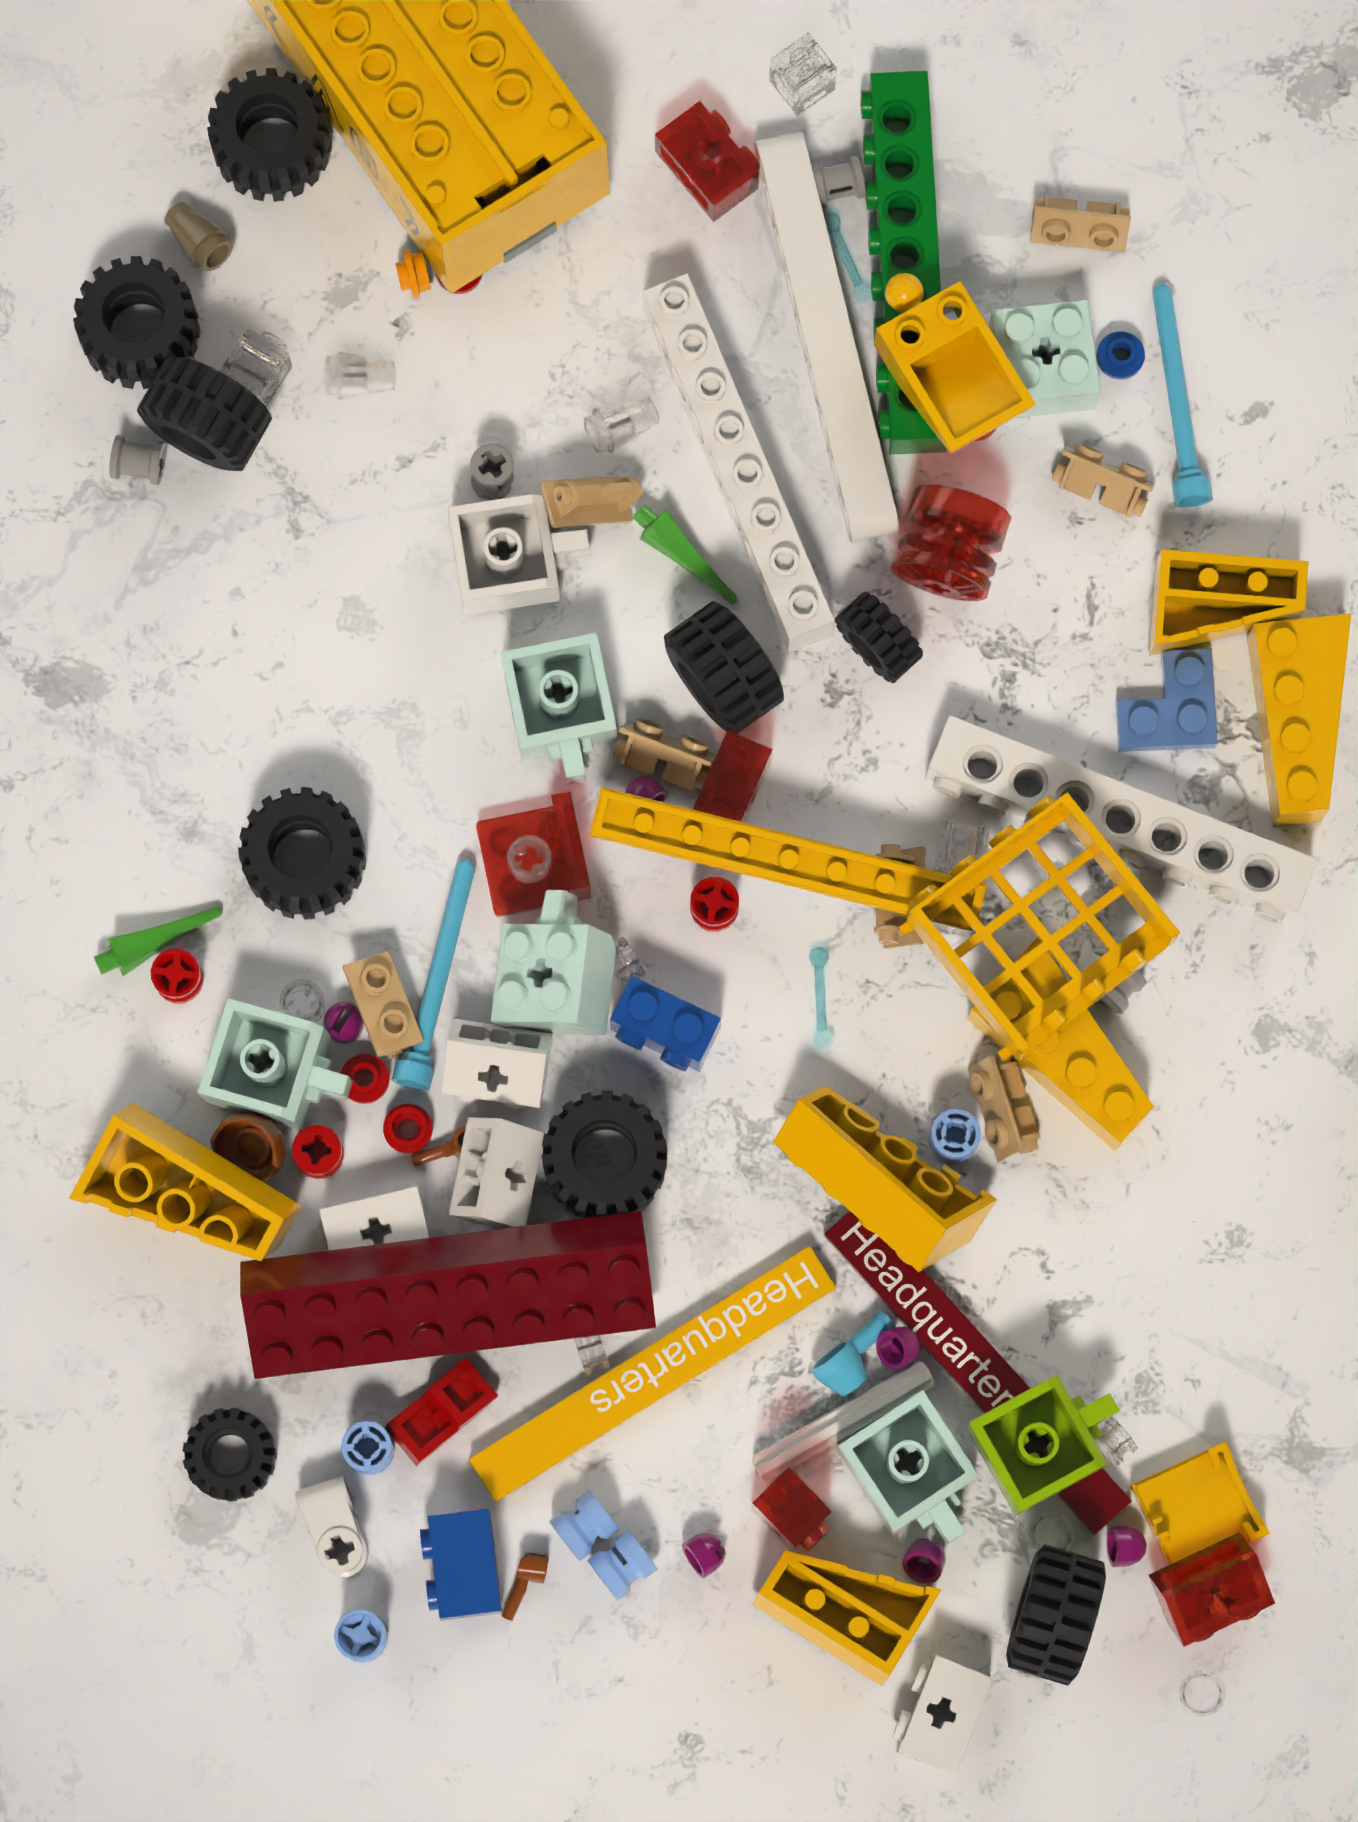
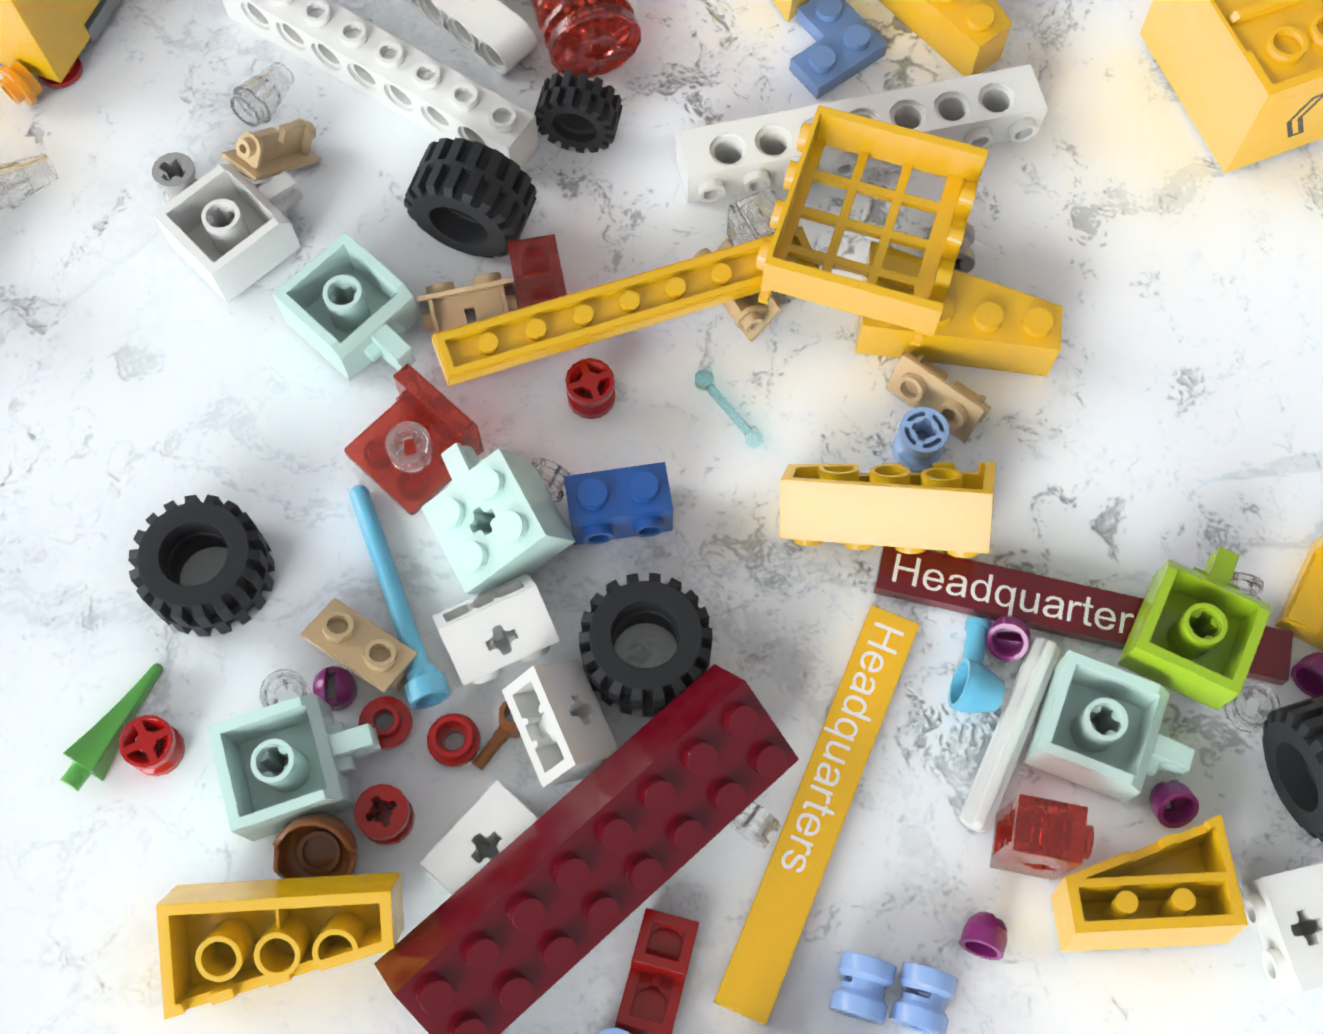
camera: 35 degrees left, 10 degrees down
(666, 537) = (362, 152): bright green piece -> none

